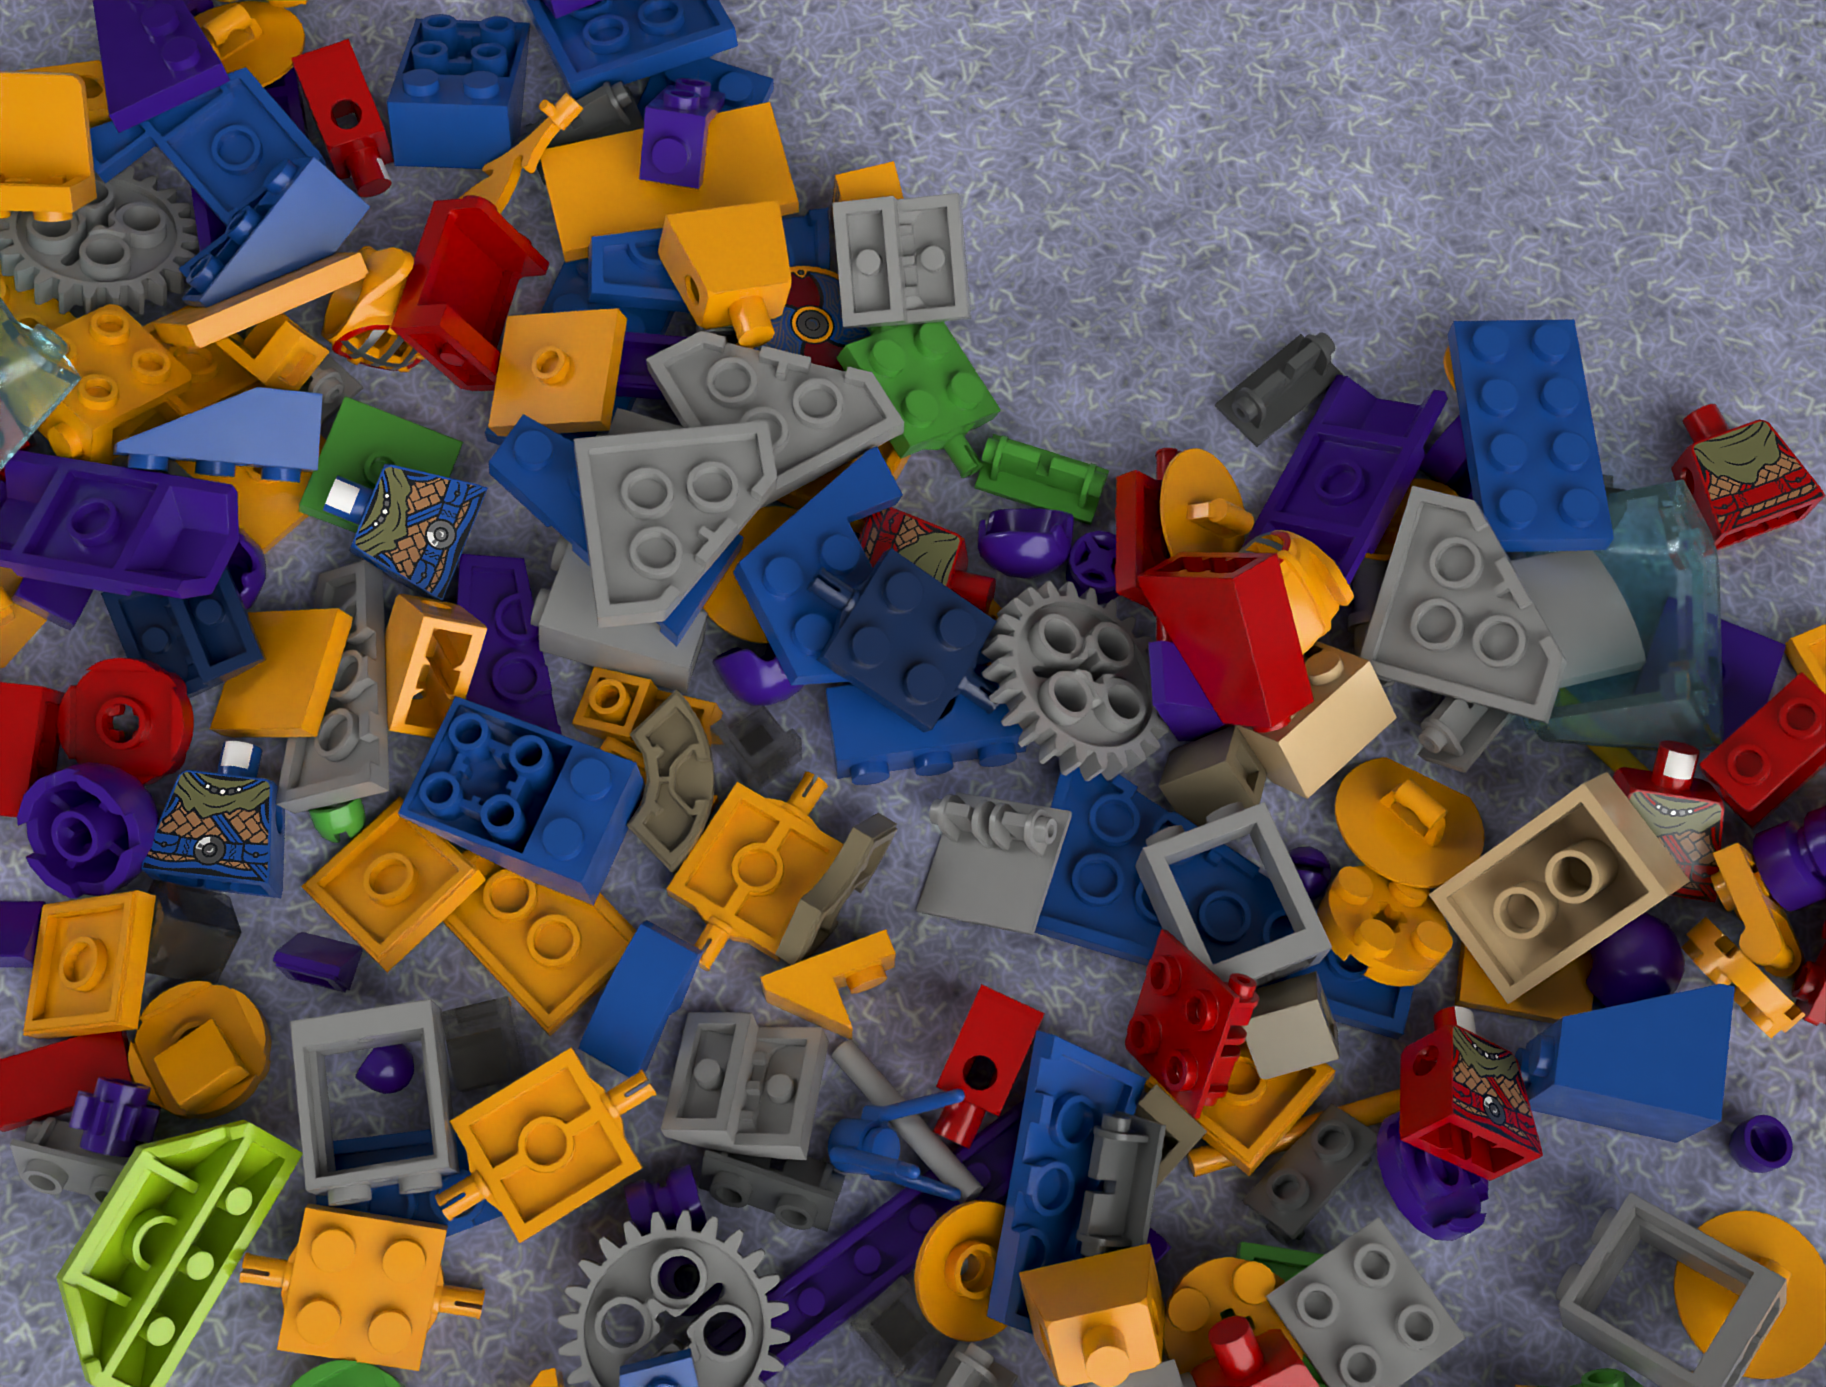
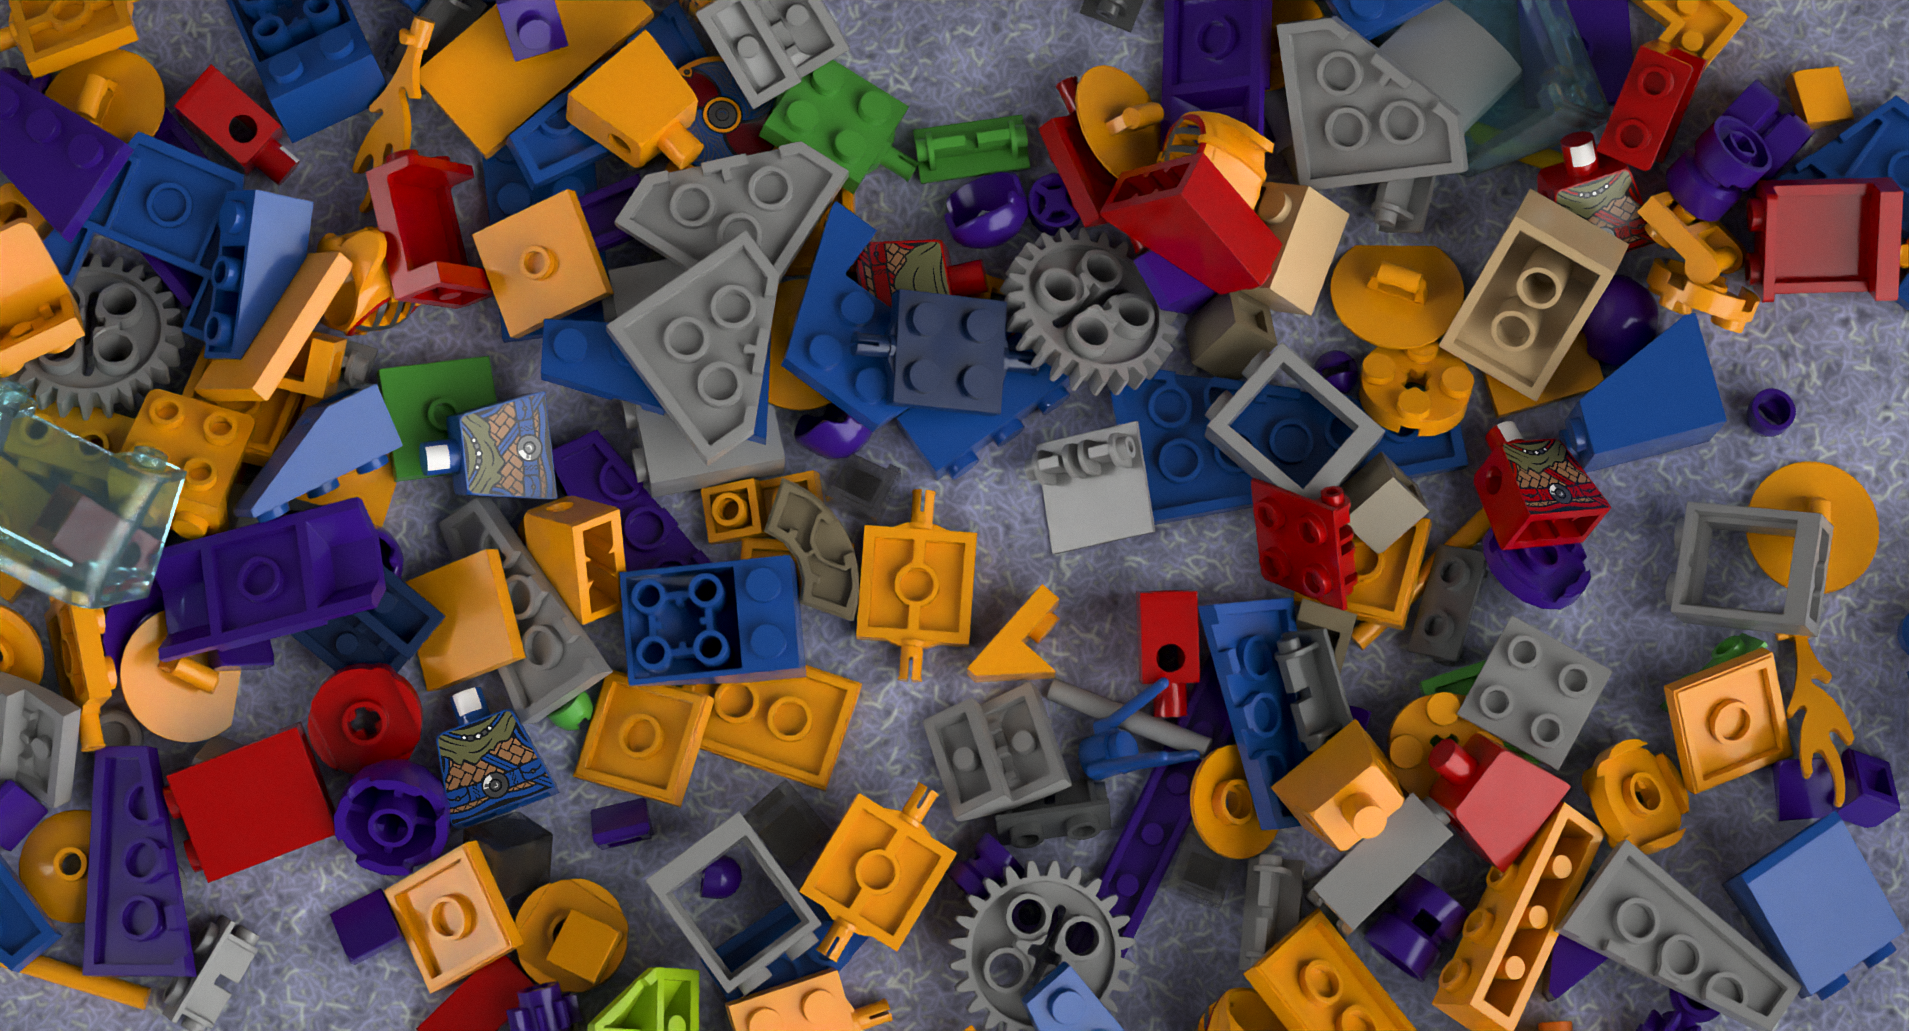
camera: 20 degrees left, 10 degrees up
(639, 999) = (883, 730): blue slope -> none
(852, 869) = (988, 555): dark tan tile -> none

